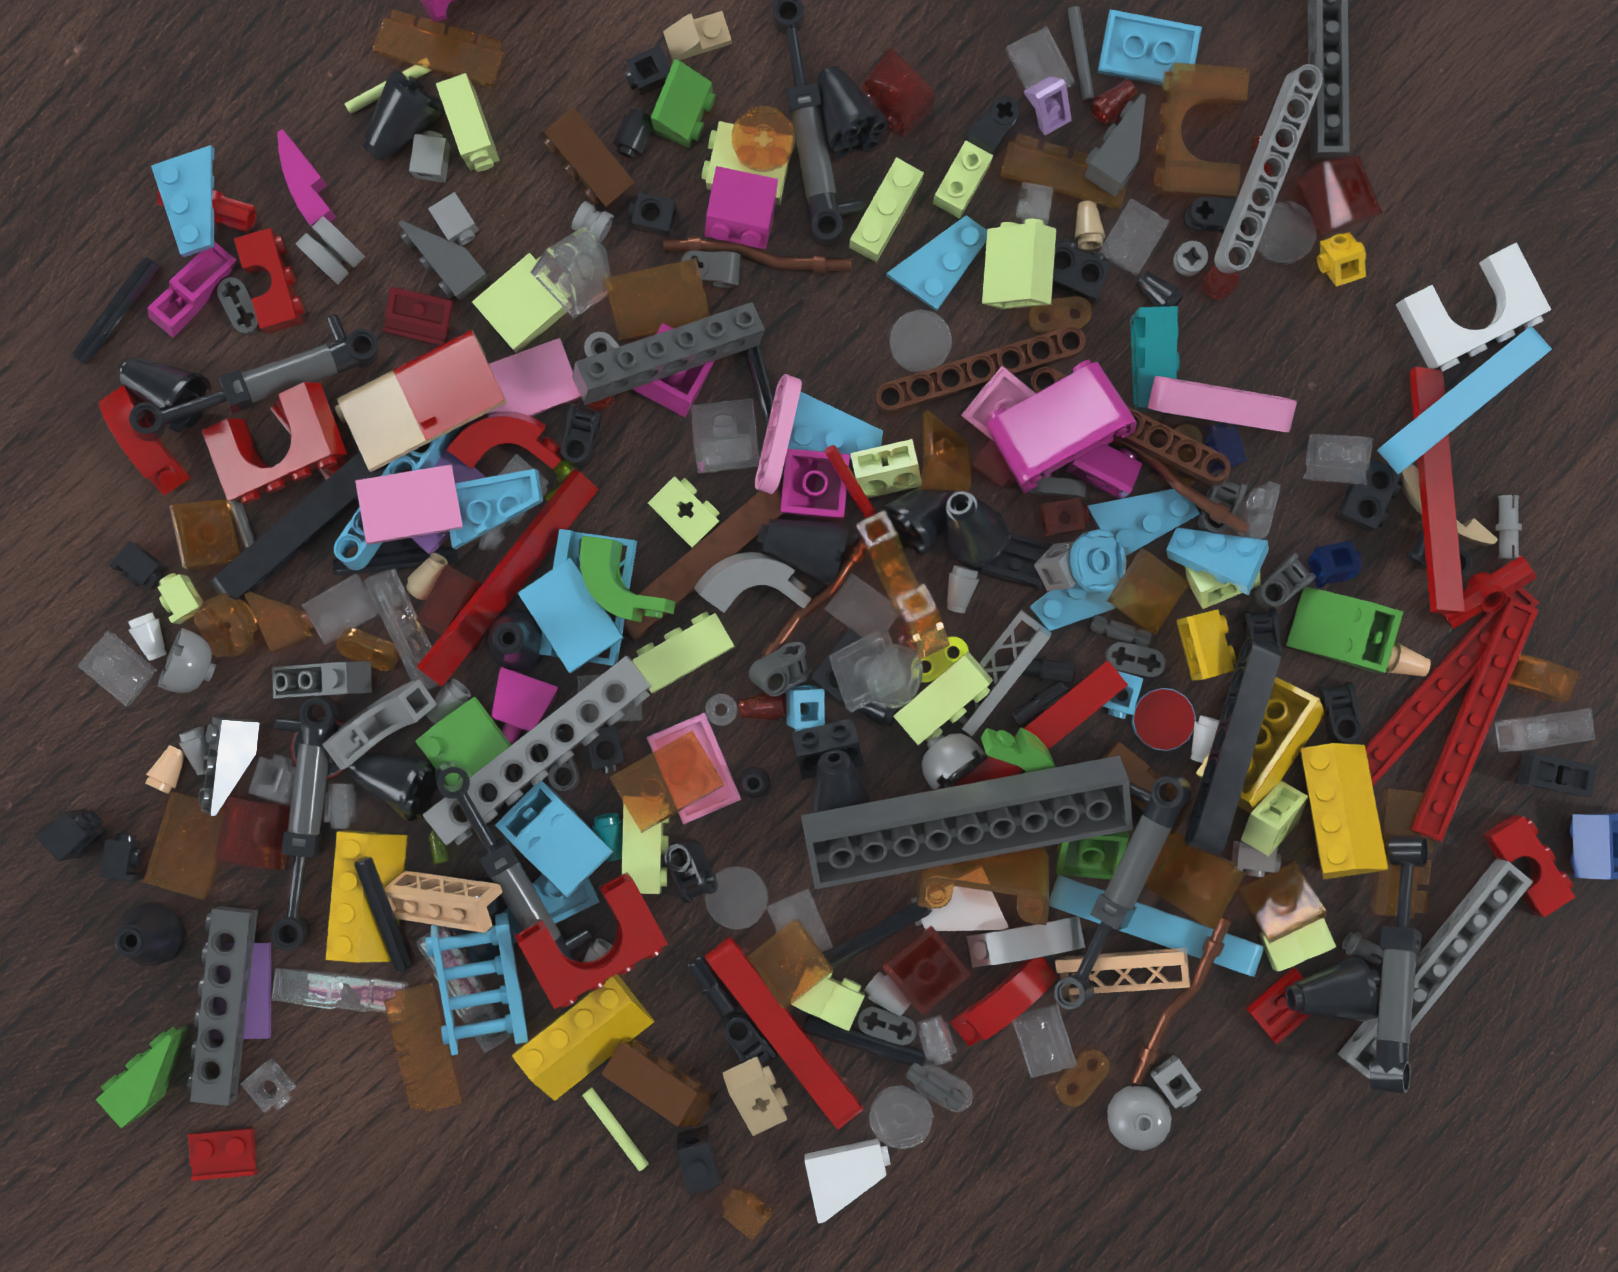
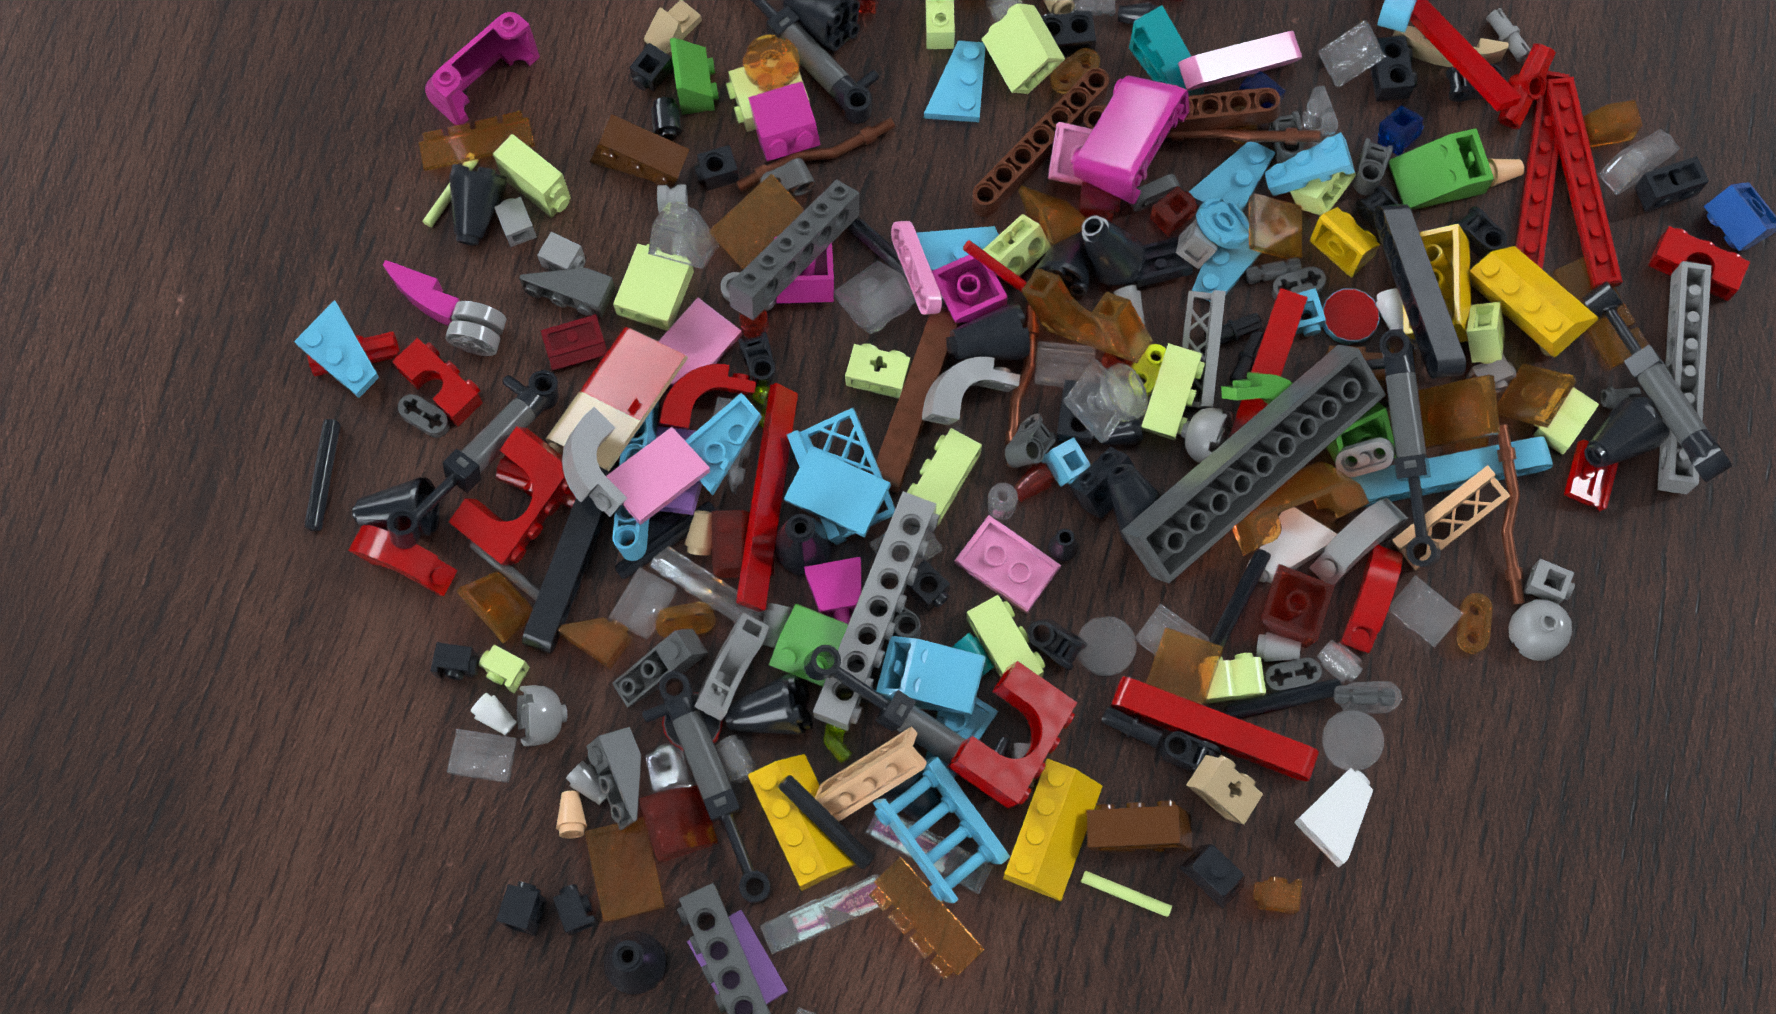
camera: 30 degrees left, 15 degrees down
(191, 289) = (376, 424): dark pink slope -> none
(211, 625) = (550, 649): clear orange plate -> none
(342, 454) = (581, 463): none -> light grey arch
(603, 580) = (864, 454): bright green arch -> none
(666, 781) = (994, 579): clear orange tile -> none
(886, 210) = (895, 68): yellowish green brick -> none
(920, 341) = (980, 147): clear tile -> none
(1082, 873) = (1367, 458): none -> light grey plate
(1107, 469) = (1184, 157): dark pink slope -> none

